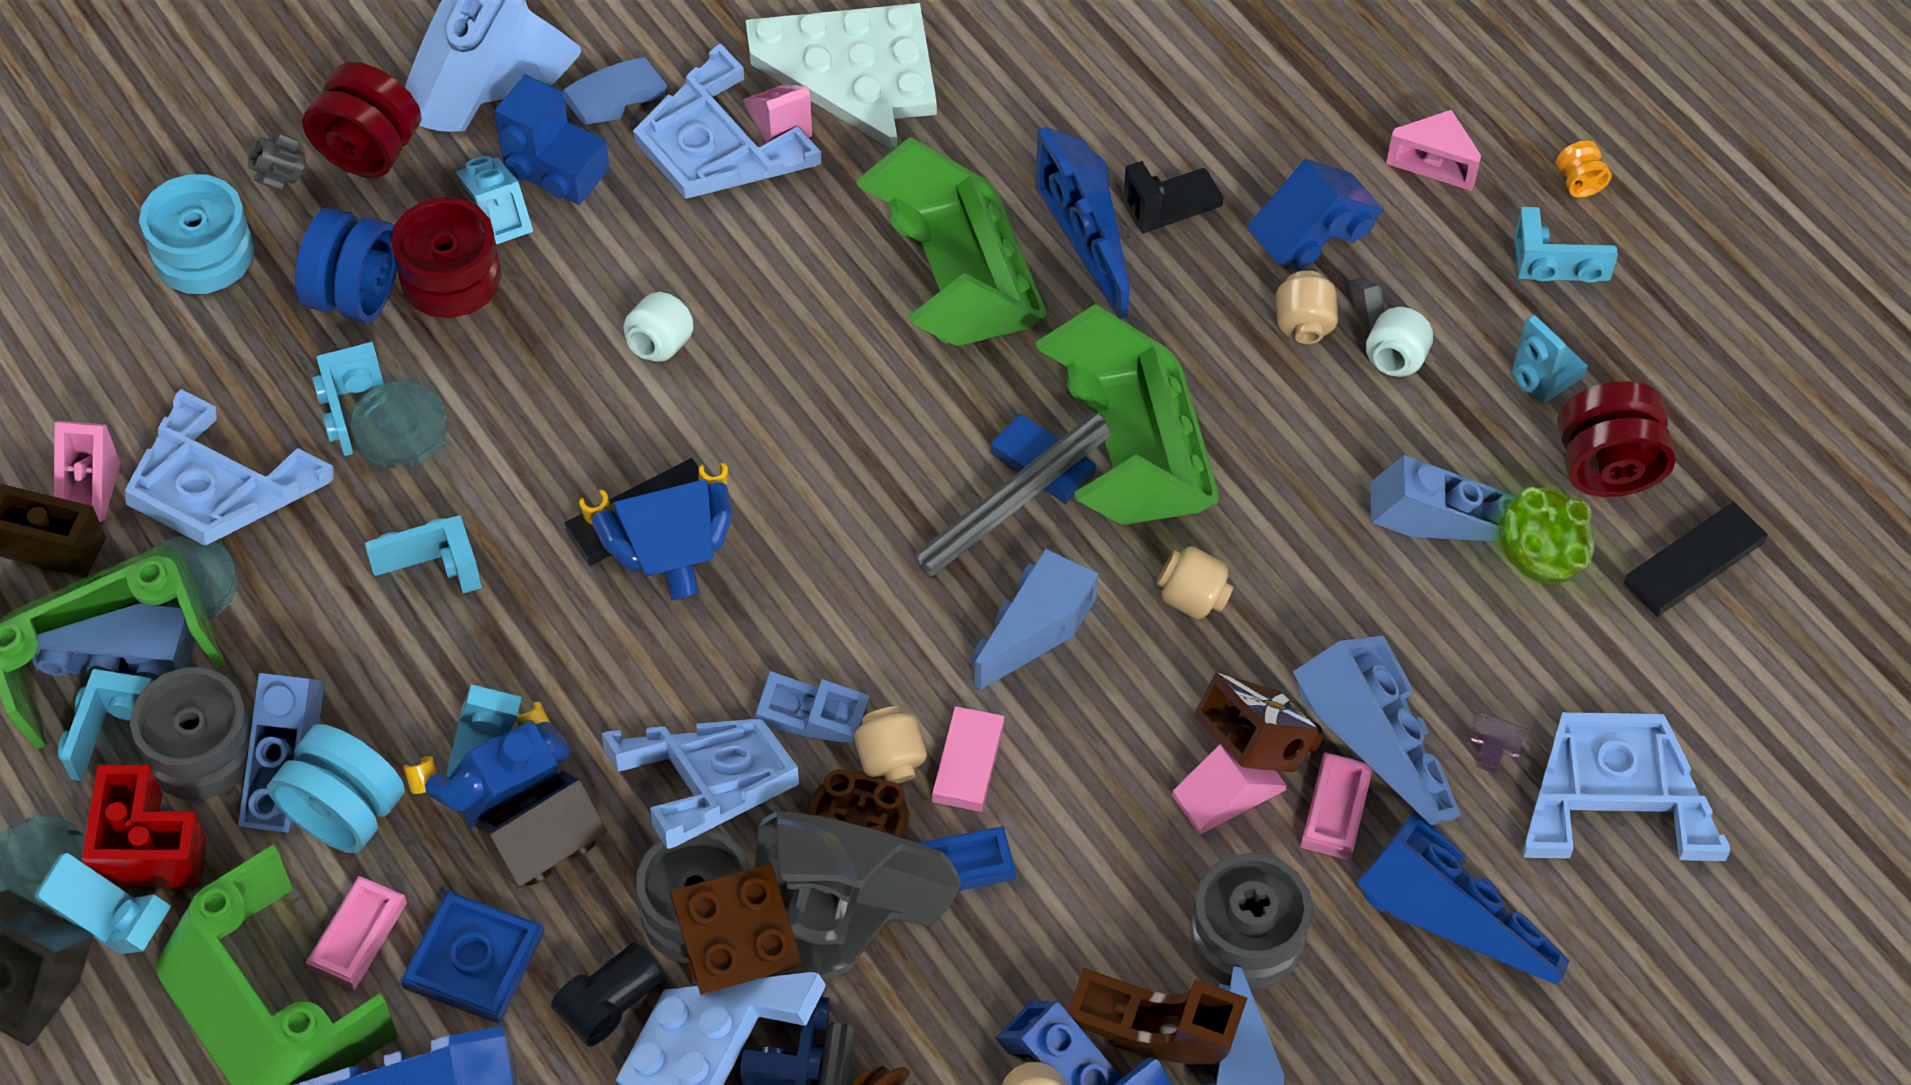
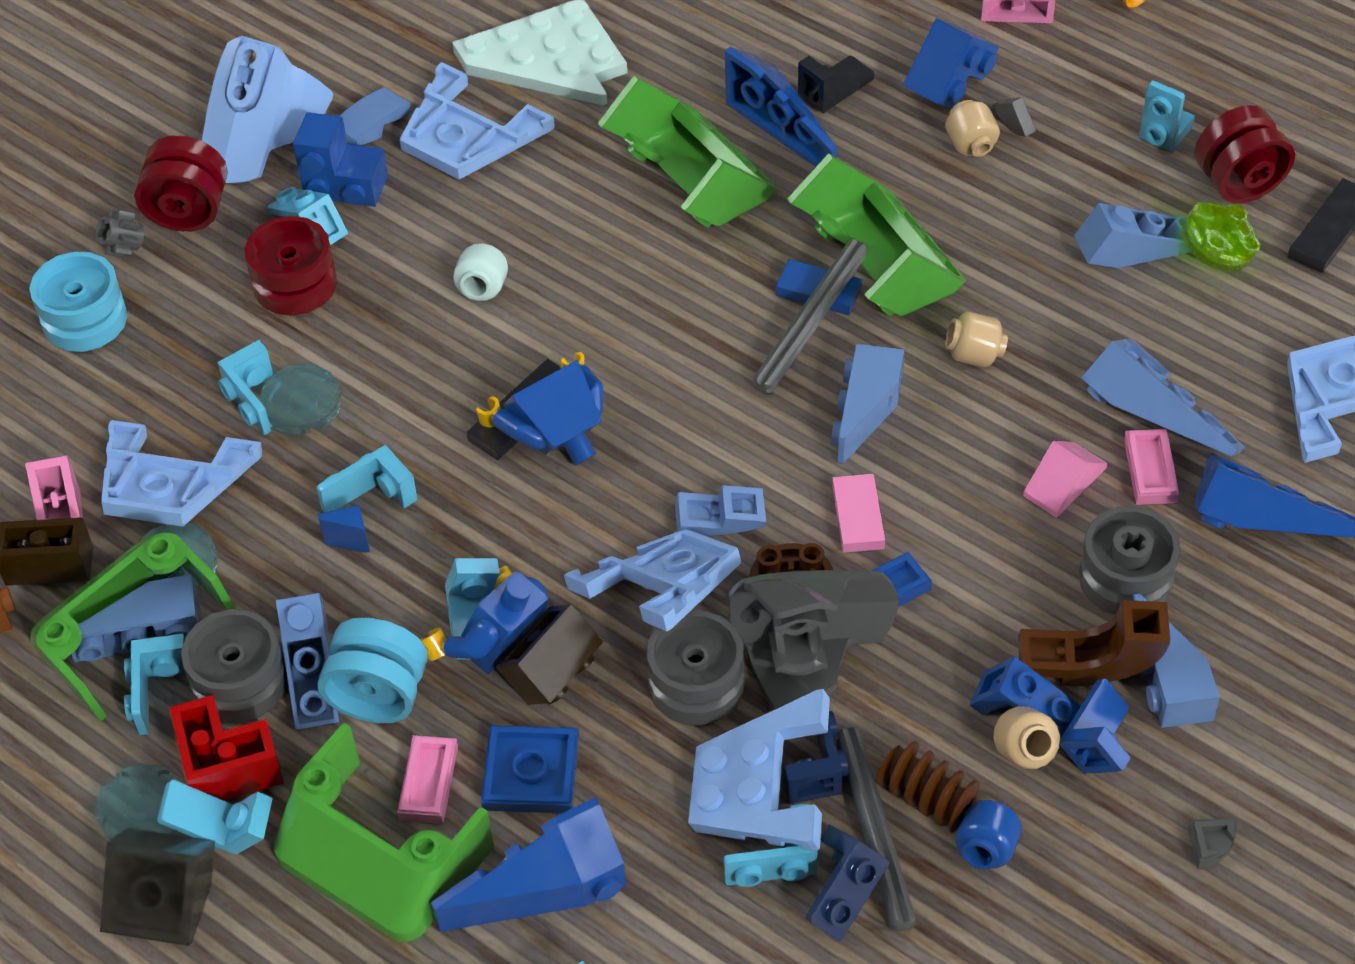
camera: 15 degrees left, 5 degrees down
(346, 265) = (214, 289): blue wheel -> none
(383, 602) = (344, 529): none -> blue slope
(596, 1003) = (649, 770): black piece -> none
(735, 929) = (742, 678): reddish brown hinge -> none
(781, 110) = (508, 96): bright pink slope -> none
(890, 744) = (796, 517): tan head -> none
(1257, 724) = (1087, 426): reddish brown torso -> none
(1399, 341) = (1051, 134): light aqua head -> none
(1497, 738) = (1250, 385): tile -> none
(1548, 262) = (1131, 53): medium azure bracket -> none

